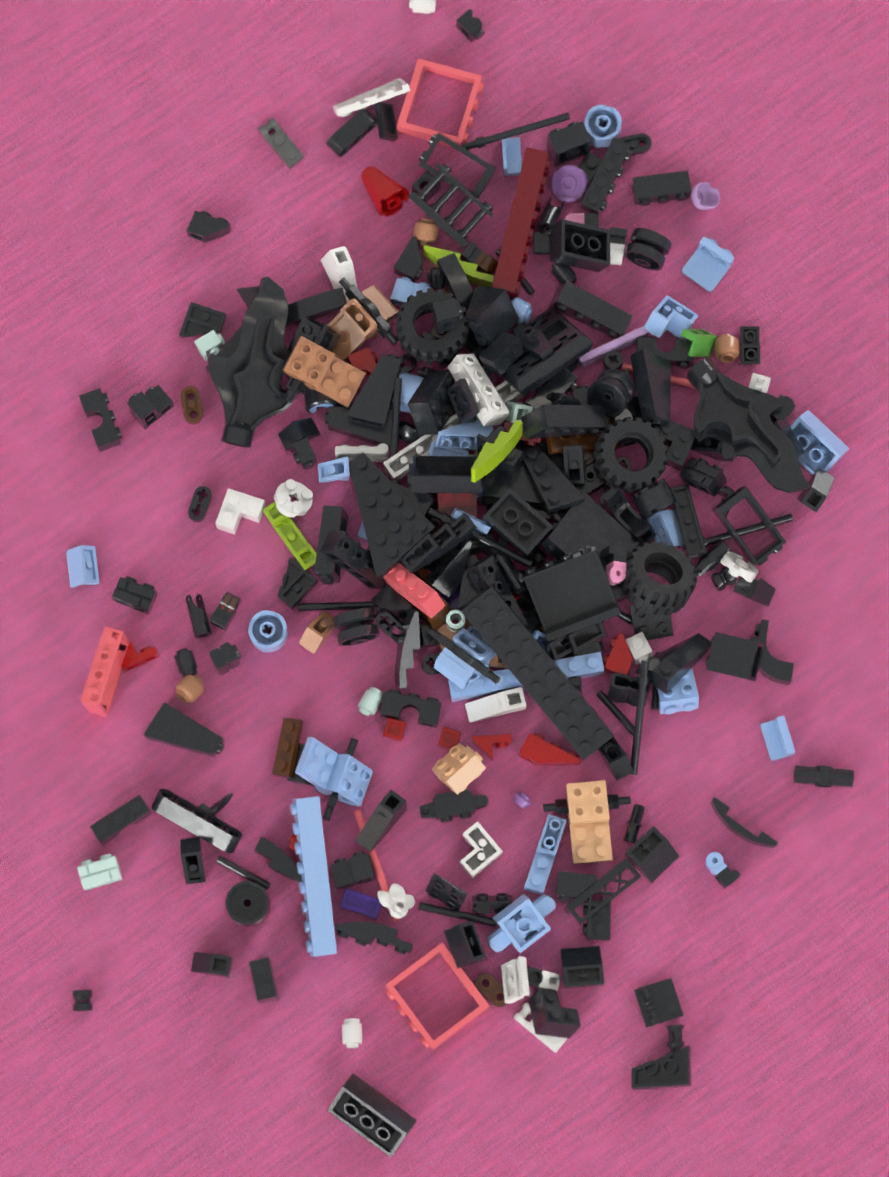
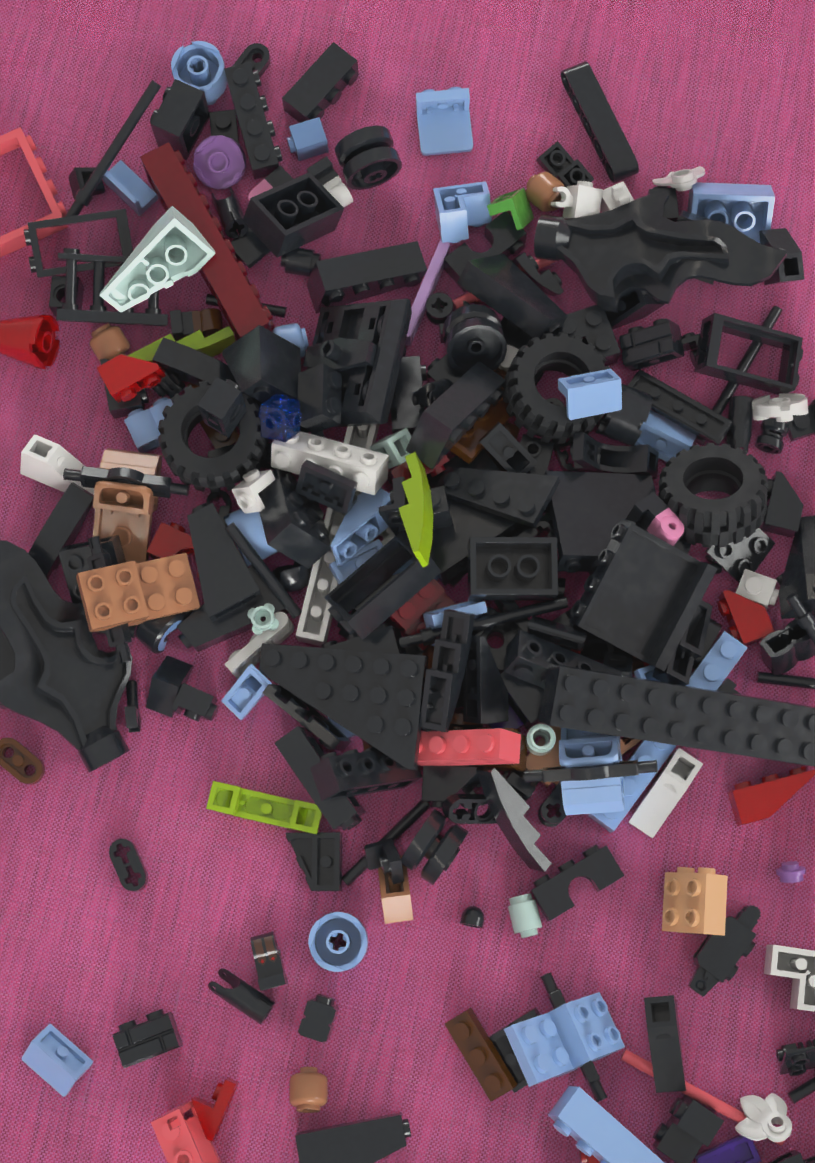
camera: 40 degrees left, 0 degrees up
(186, 662) = (277, 1063): black brick -> none
(237, 506) = (172, 831): white brick -> none
(266, 433) = (132, 715): none -> black bar
(297, 490) = (227, 750): white plate -> none
(327, 609) = (386, 856): none -> black bracket
(344, 680) = (472, 917): none -> black hinge
(353, 513) = (308, 717): none -> black wing
(372, 434) = (263, 611): none -> light aqua plate
(394, 729) = (578, 921): red tile -> none
(417, 257) = (129, 375): none -> red slope
(425, 368) = (247, 490): none -> white bracket
(449, 738) = (647, 876): red tile -> none
(471, 346) = (280, 418): none -> clear blue brick
(486, 742) = (693, 845): red slope -> none
(490, 129) = (80, 176): none -> black slope
(490, 211) = (162, 257): none -> light aqua wedge
(627, 211) = (307, 139): none -> medium blue brick
(640, 471) = (591, 393): none -> light blue panel
(680, 393) = (546, 281): none -> black slope
(691, 620) = (783, 507): none -> black slope
(704, 196) = (375, 56): lavender hair -> none
(738, 368) = (579, 200): none -> white brick
(791, 335) = (599, 122): none -> black beam
(802, 403) = (681, 179): none -> white plate

